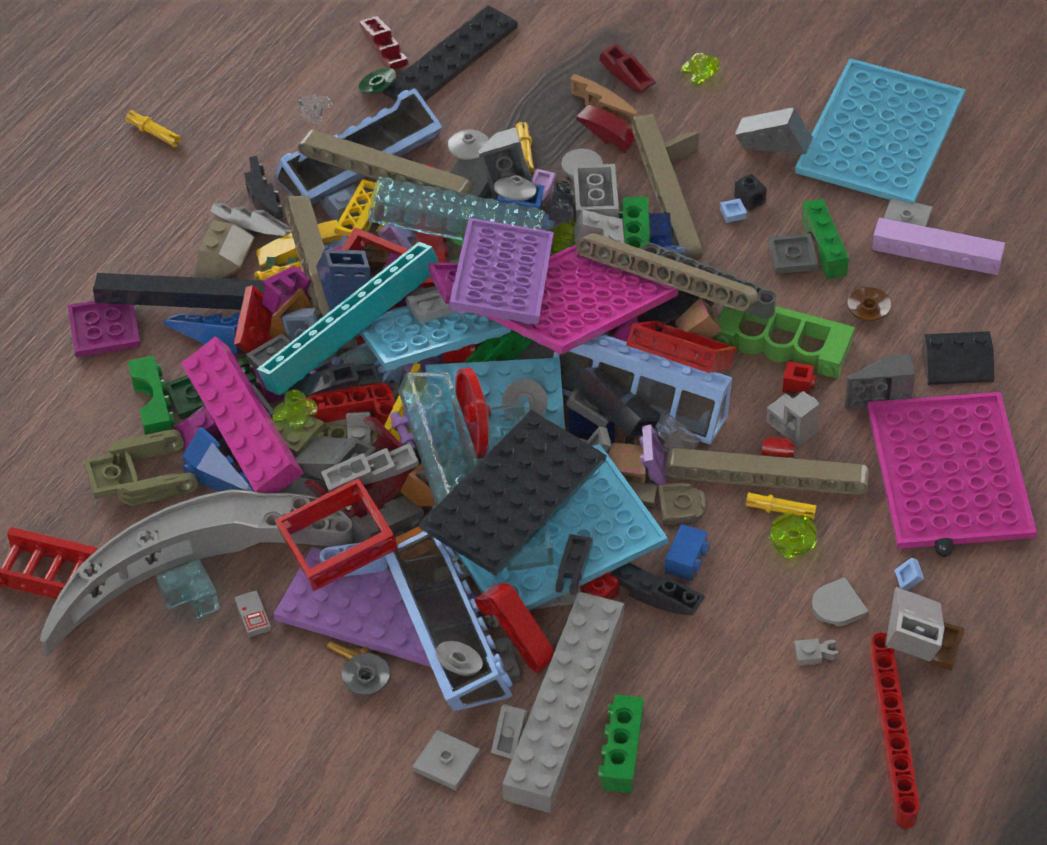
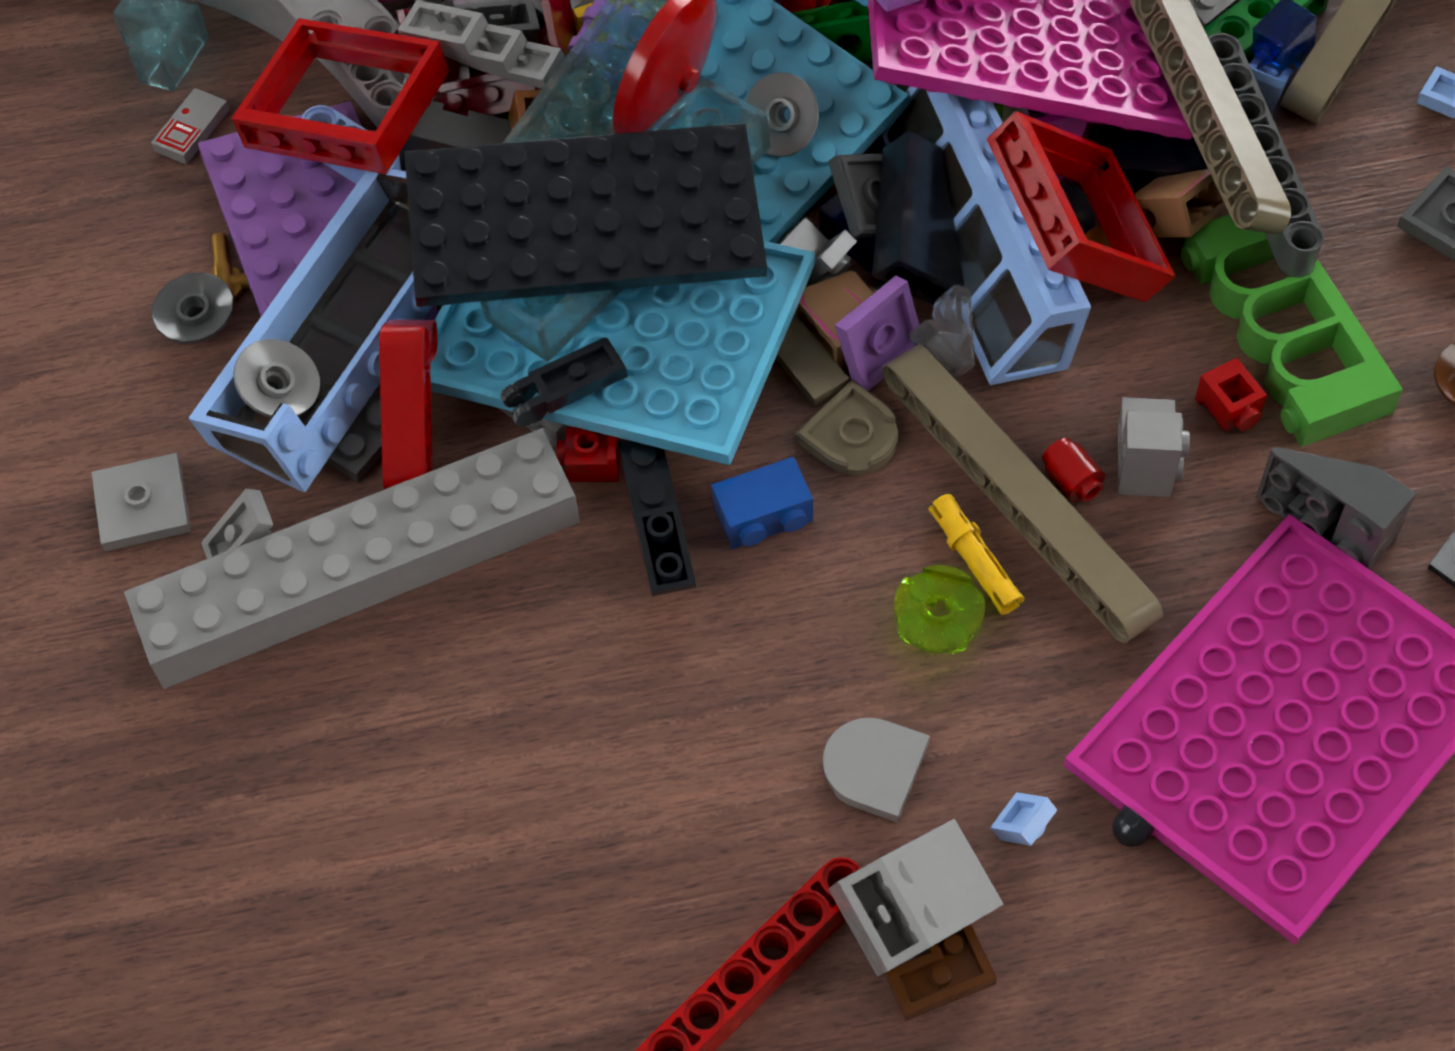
camera: 50 degrees right, 10 degrees up
(621, 776) = (338, 705): green brick -> none
(811, 652) = (751, 797): light grey plate -> none

